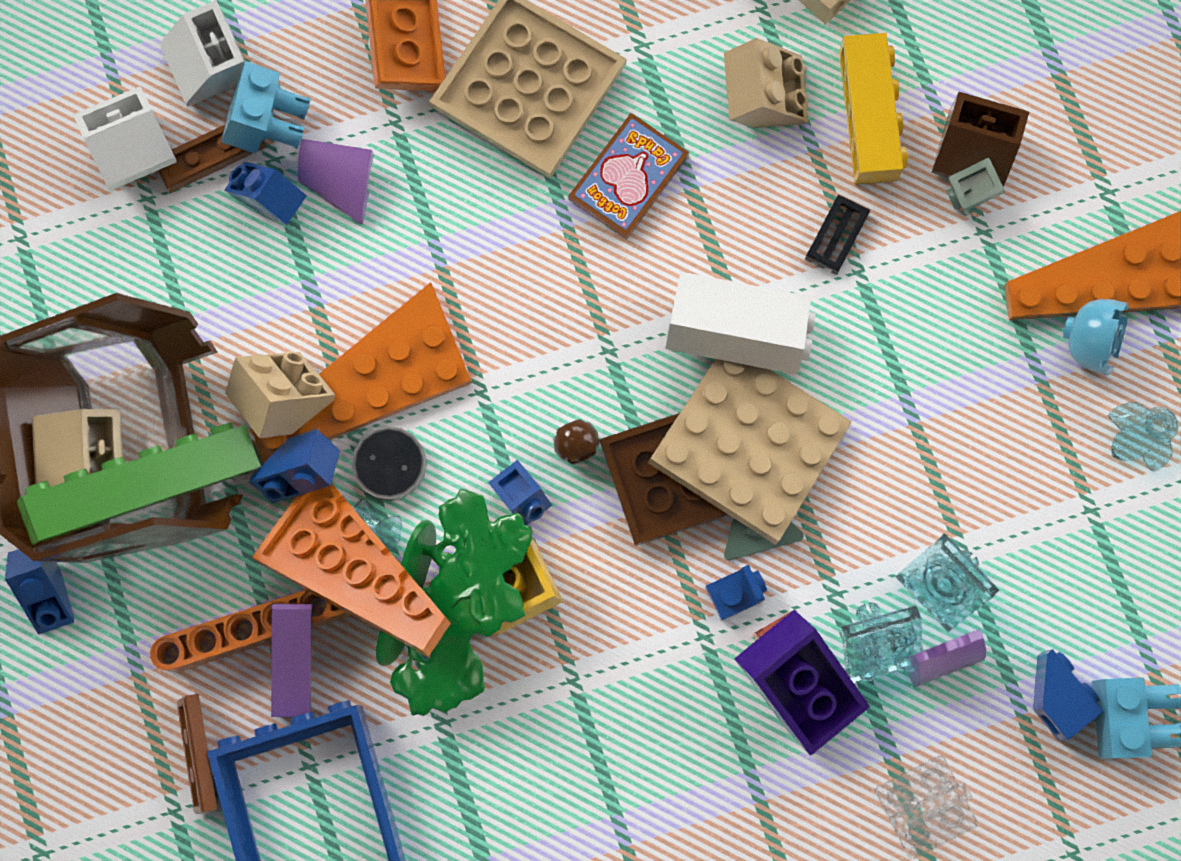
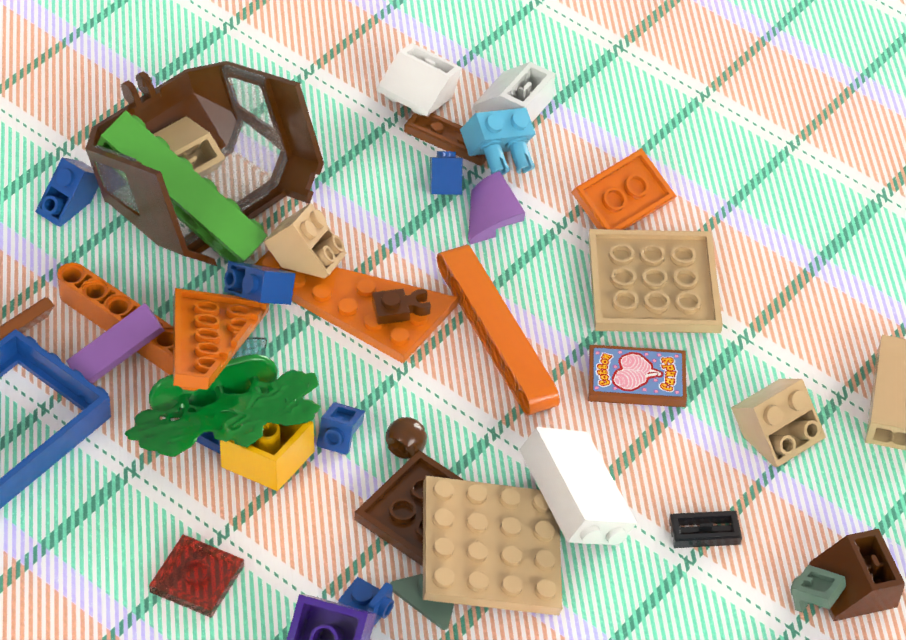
camera: 50 degrees right, 30 degrees down
(389, 463) = (304, 341): black tile -> none
(413, 353) = (395, 306): none -> reddish brown plate
(494, 270) = (498, 330): none -> orange beam
(609, 733) = (196, 575): none -> clear red tile
(872, 108) = (821, 496): yellow brick -> none

